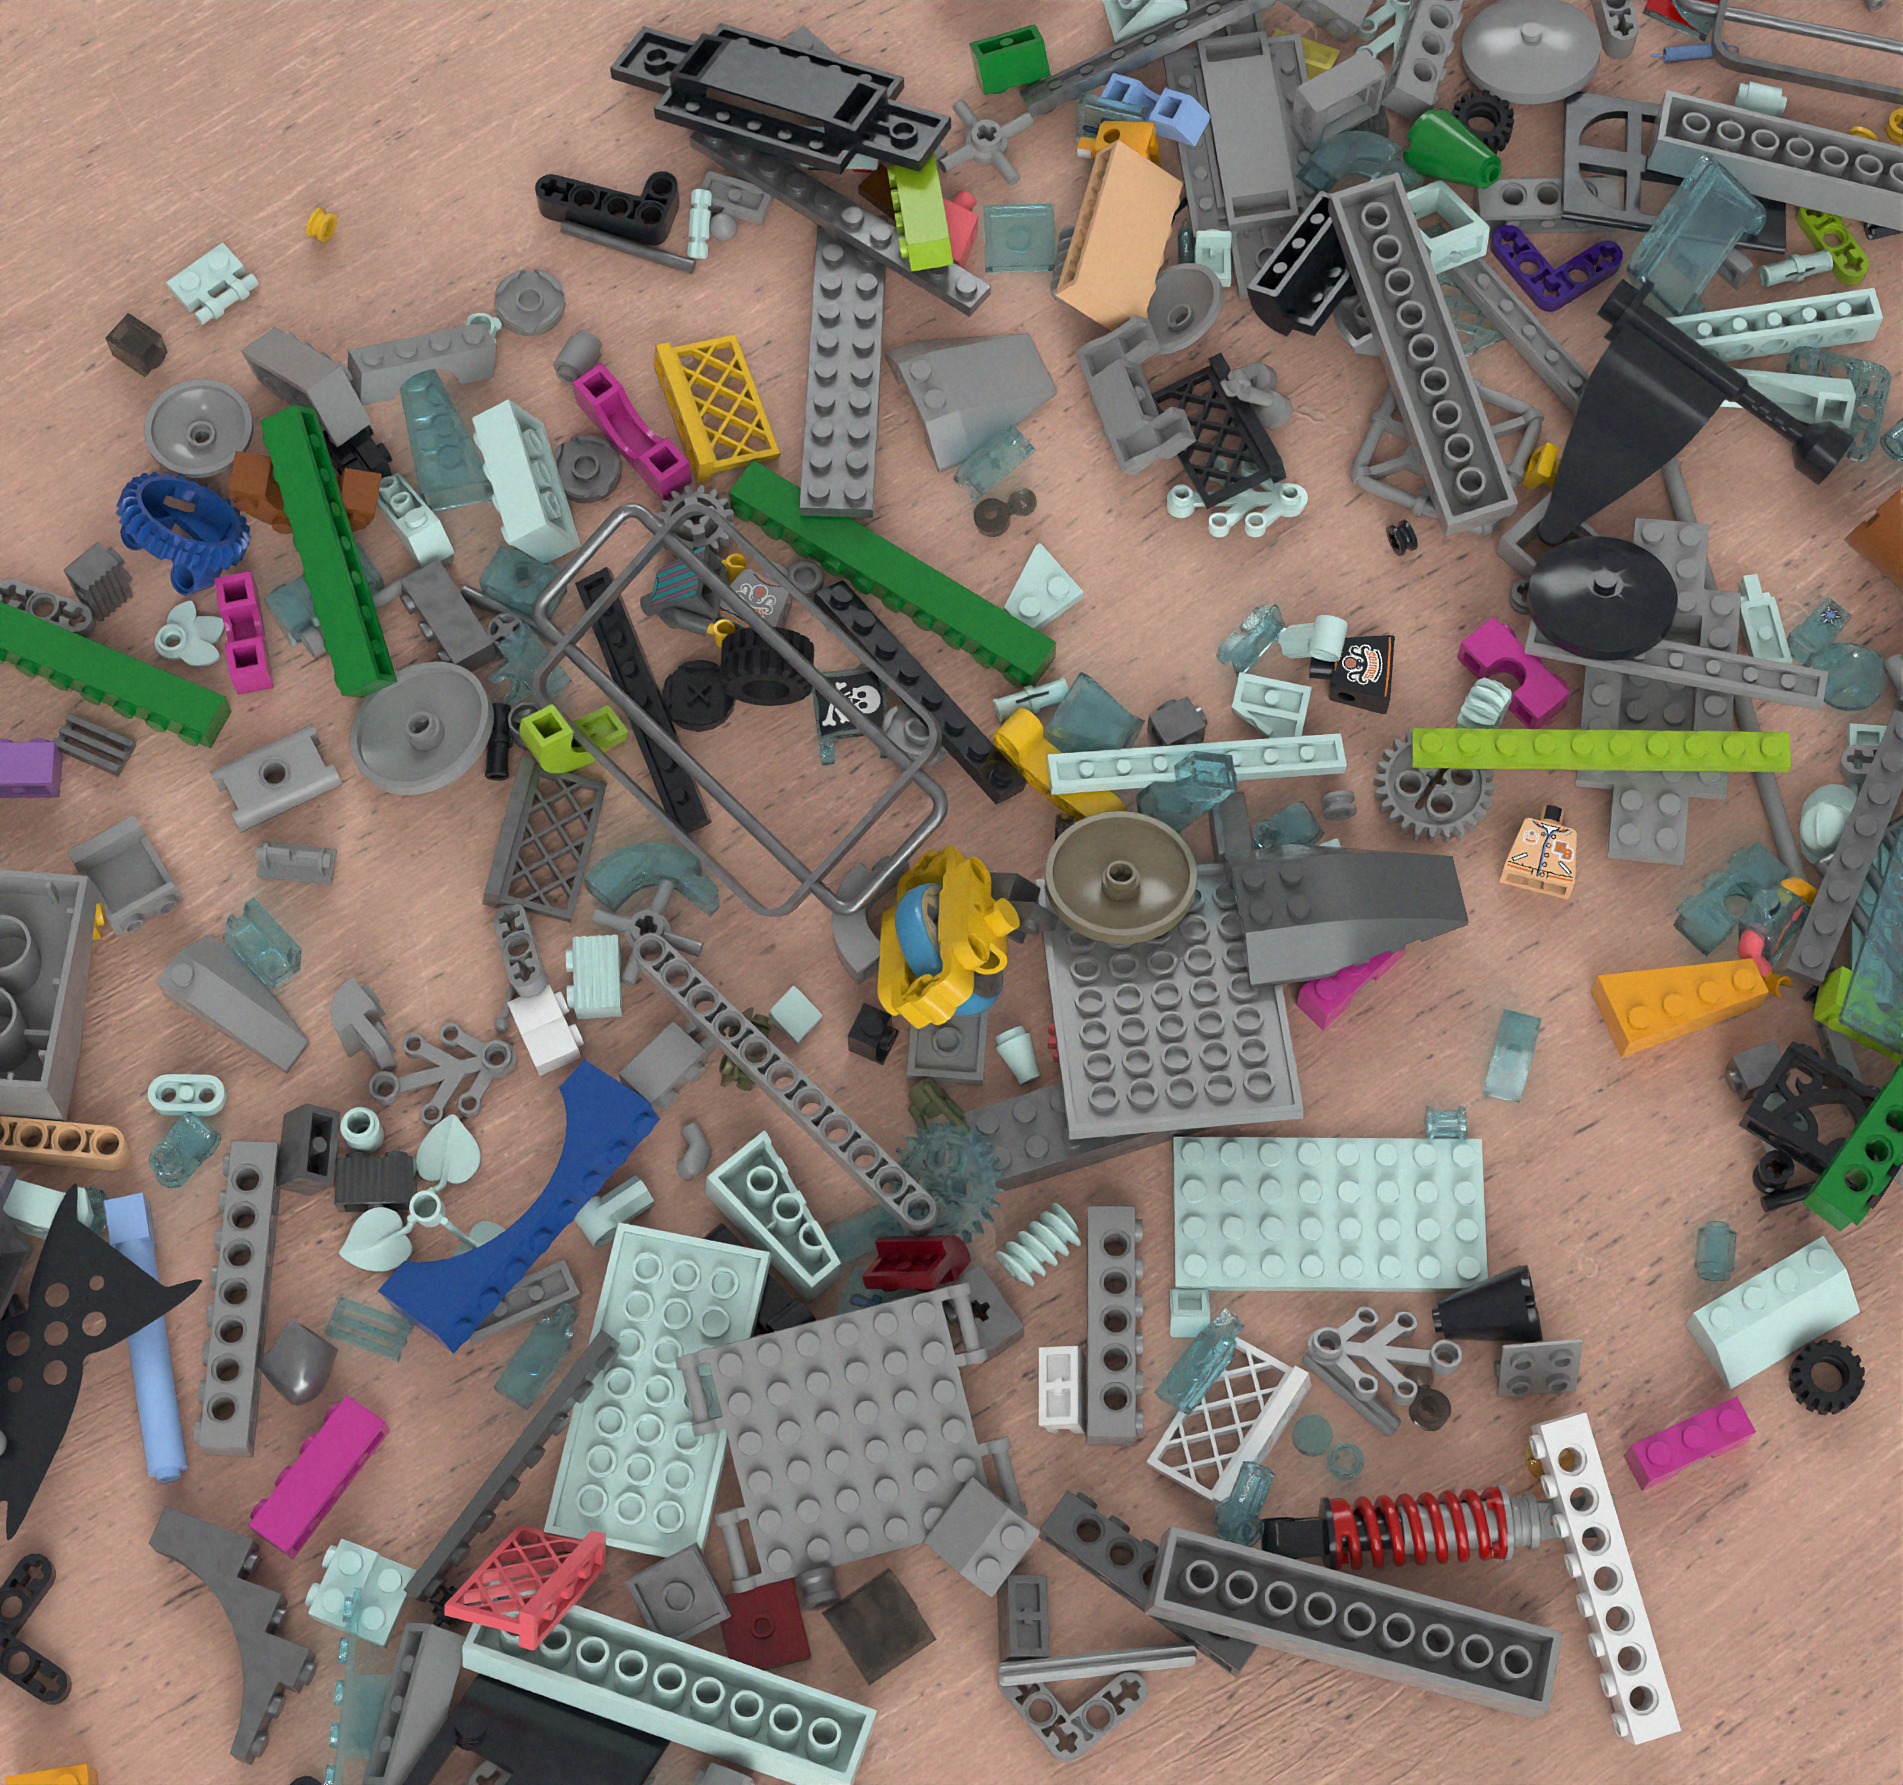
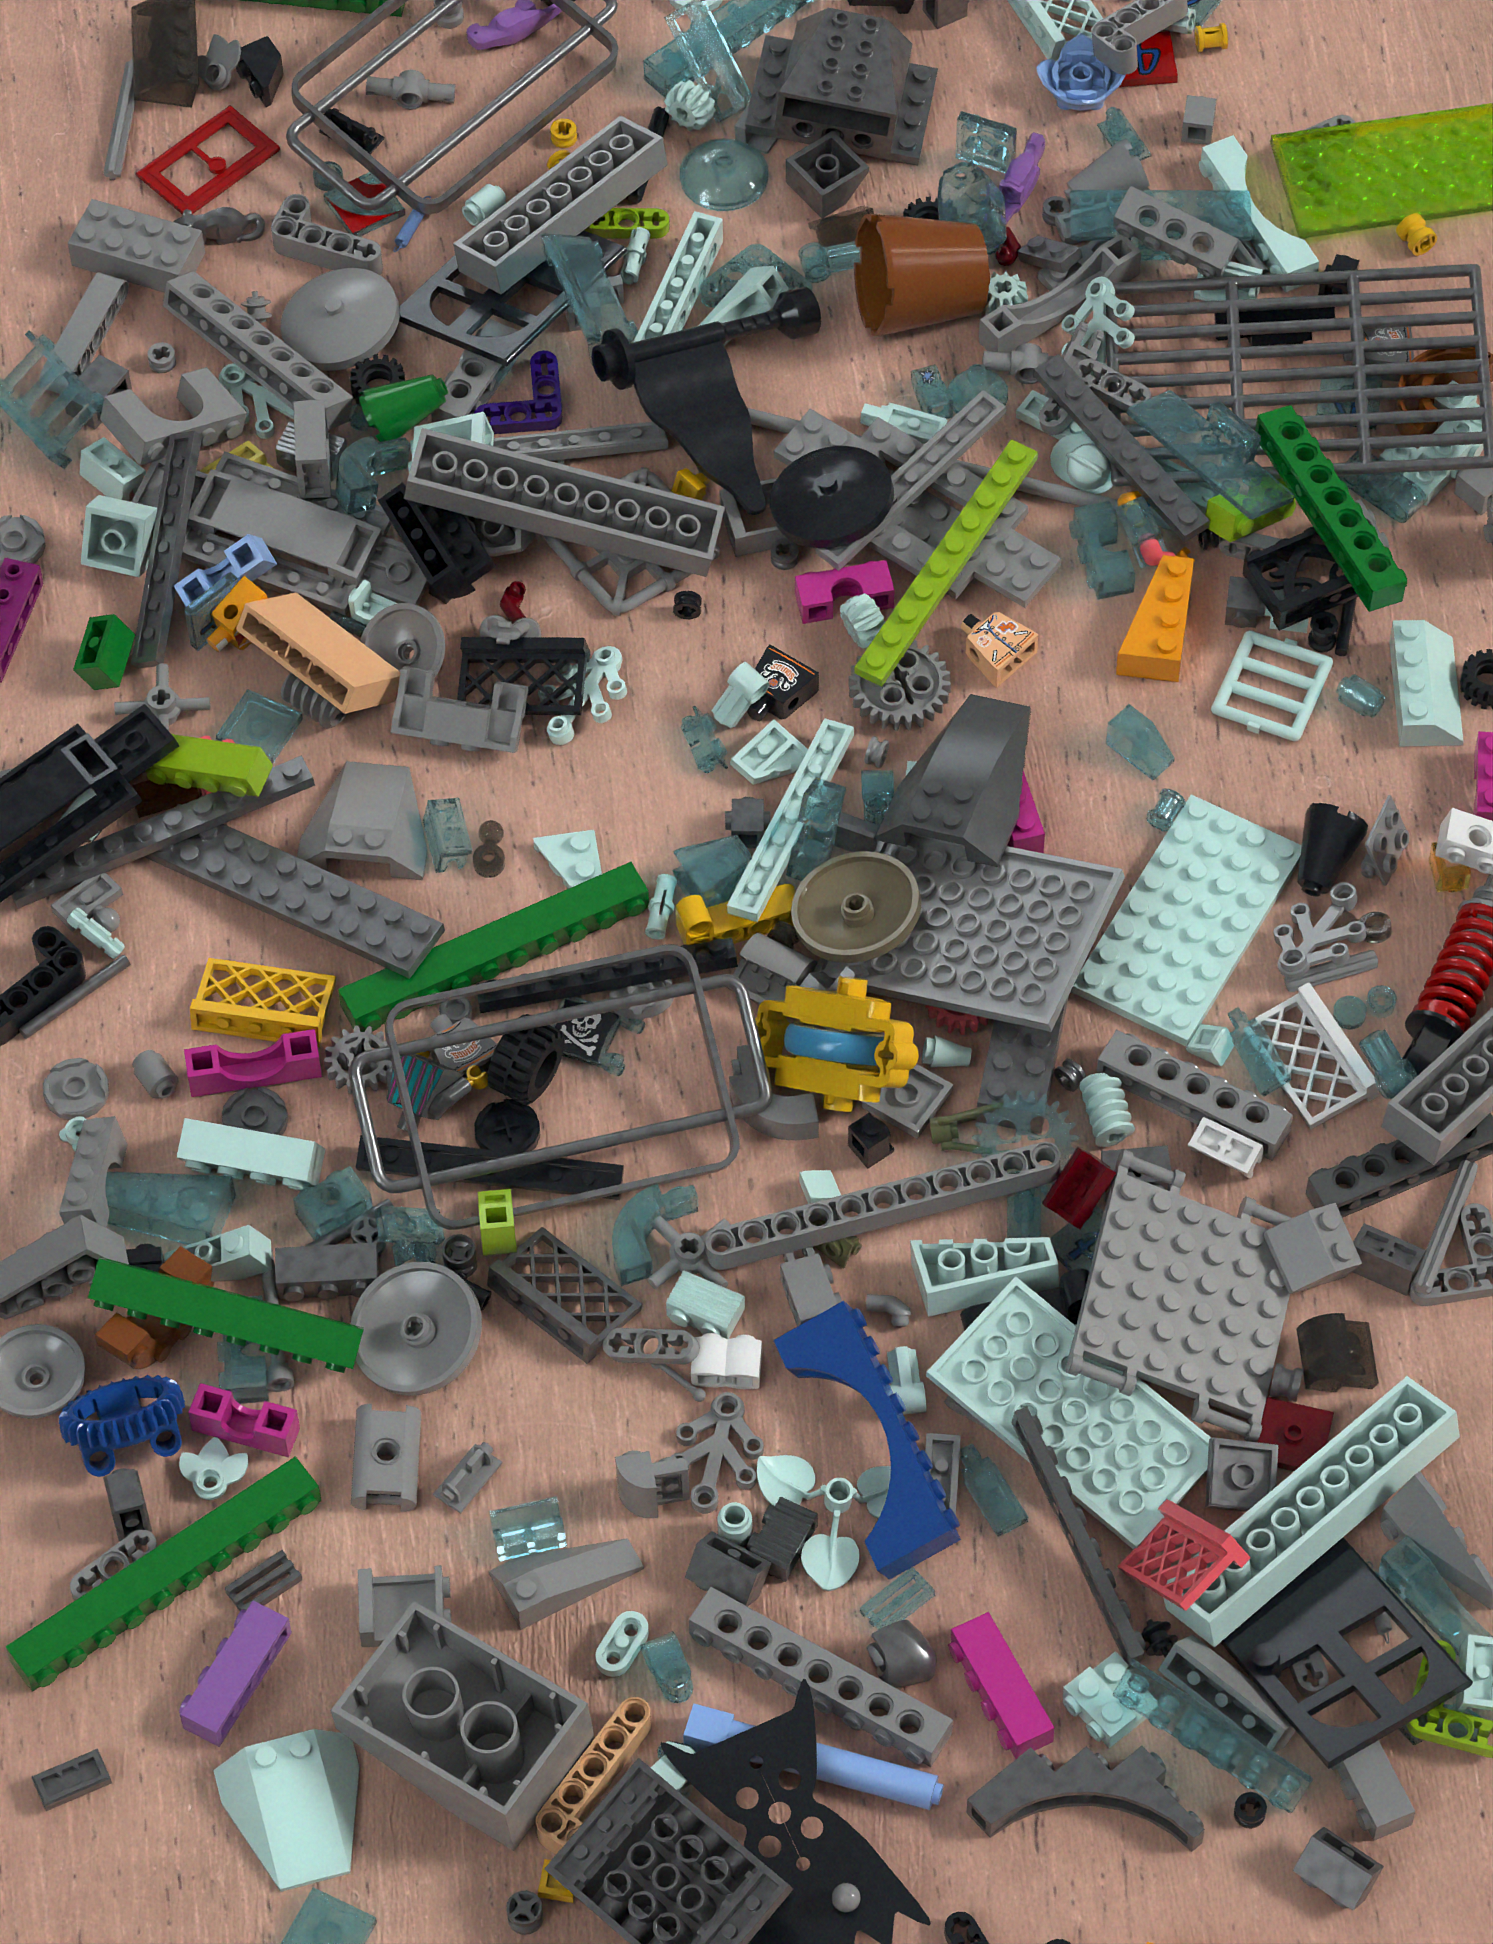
camera: 60 degrees left, 10 degrees down
(1014, 836) = (770, 967): none -> light grey brick
(1063, 1189) = (1069, 1075): none -> flat silver bush
(1304, 378) = (512, 600): none -> dark red arm
(1663, 1200) = (1242, 661): none -> light aqua bar

